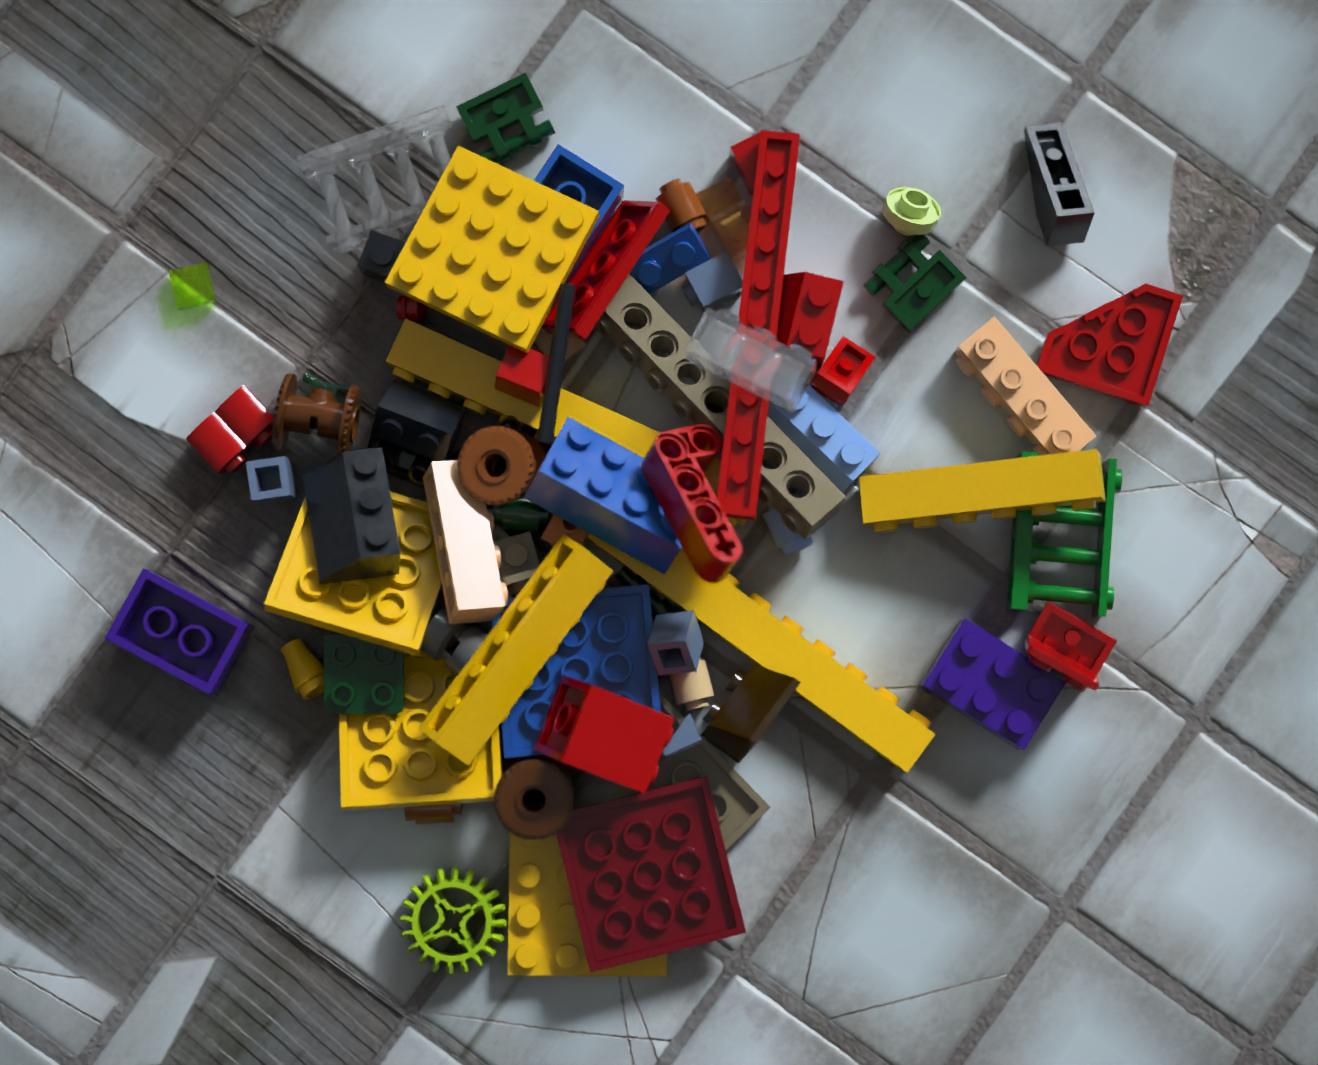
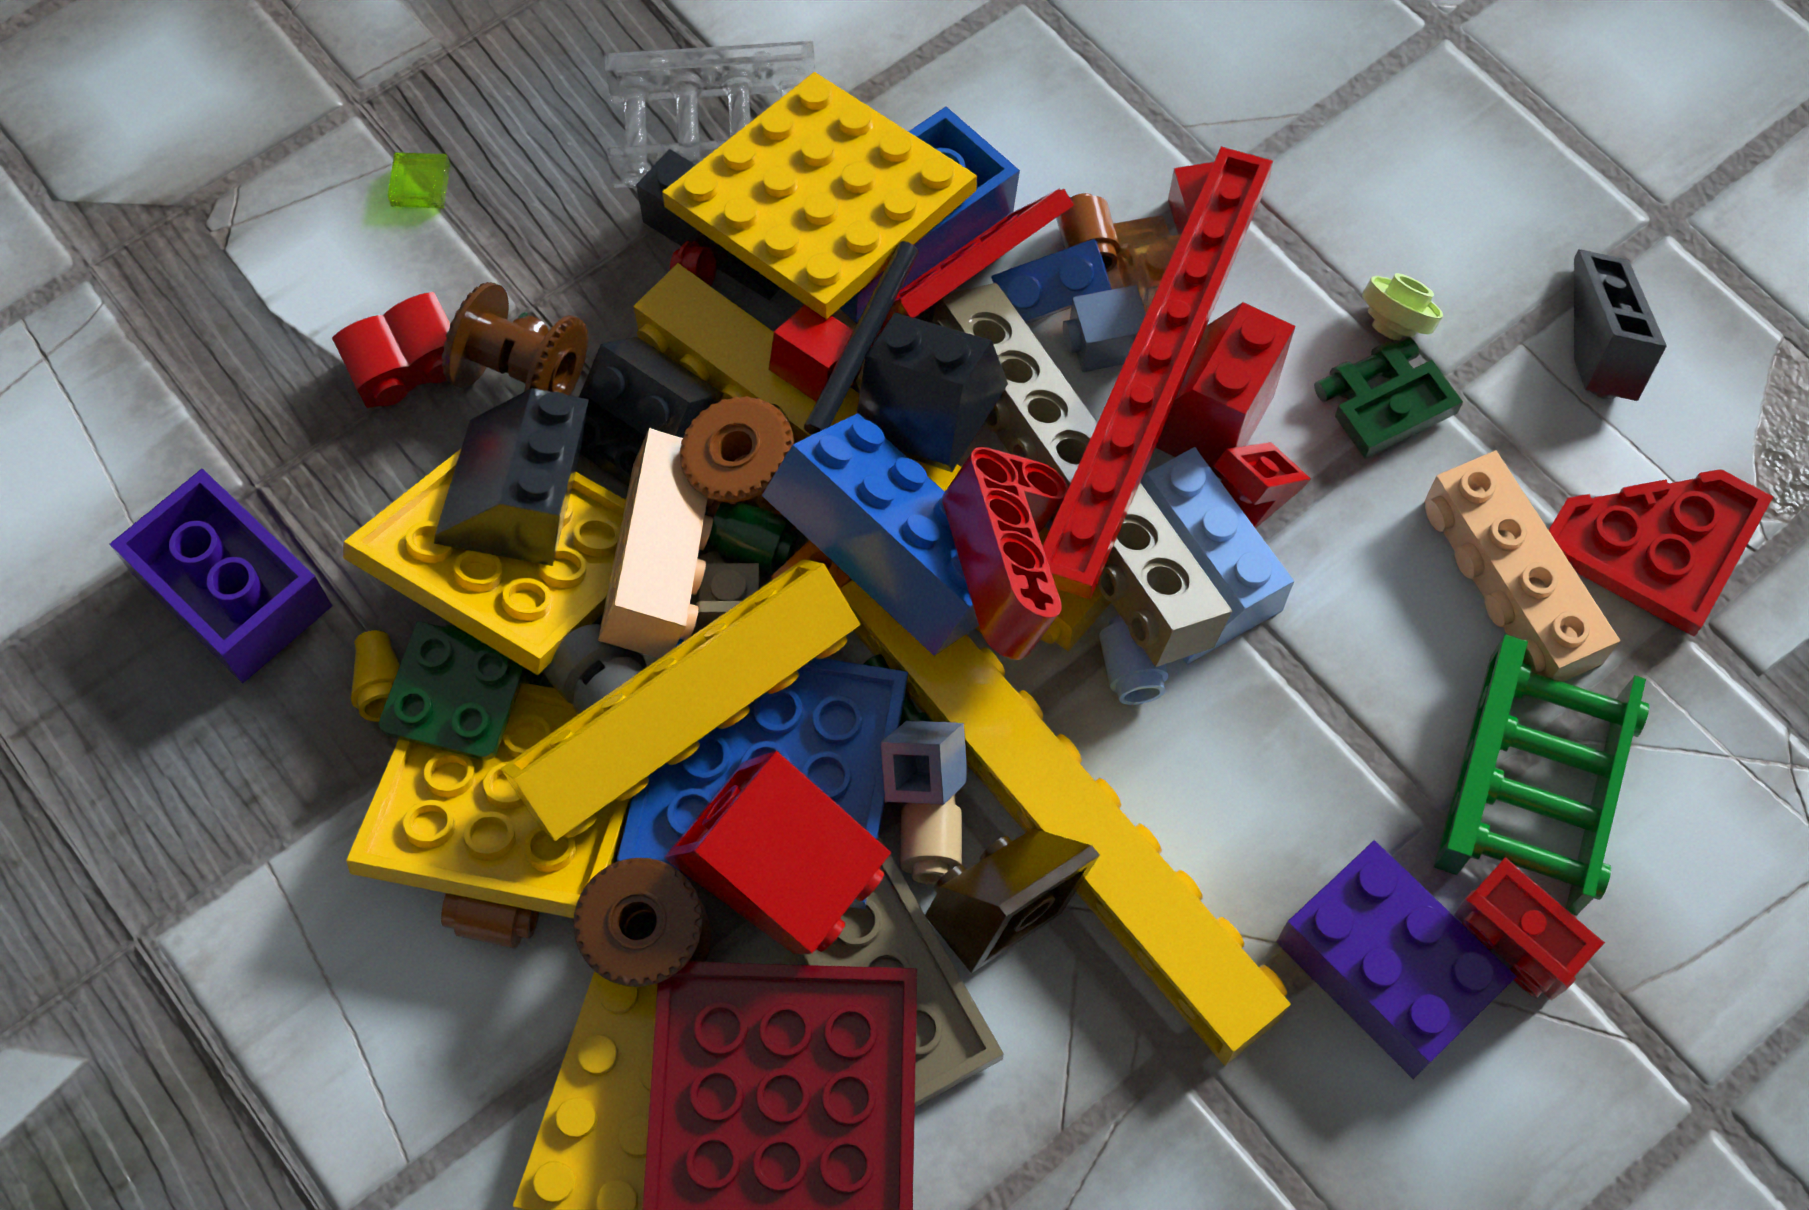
camera: 15 degrees right, 20 degrees down
(271, 480) = (425, 415): sand blue brick -> none
(443, 904) = (433, 1100): lime gear -> none
(501, 108) = (891, 74): dark green plate -> none
(609, 388) = (930, 388): none -> black slope
(684, 737) = (895, 904): sand blue slope -> none
(751, 358) = (1139, 381): clear brick -> none
(982, 489) = (1440, 665): yellow brick -> none

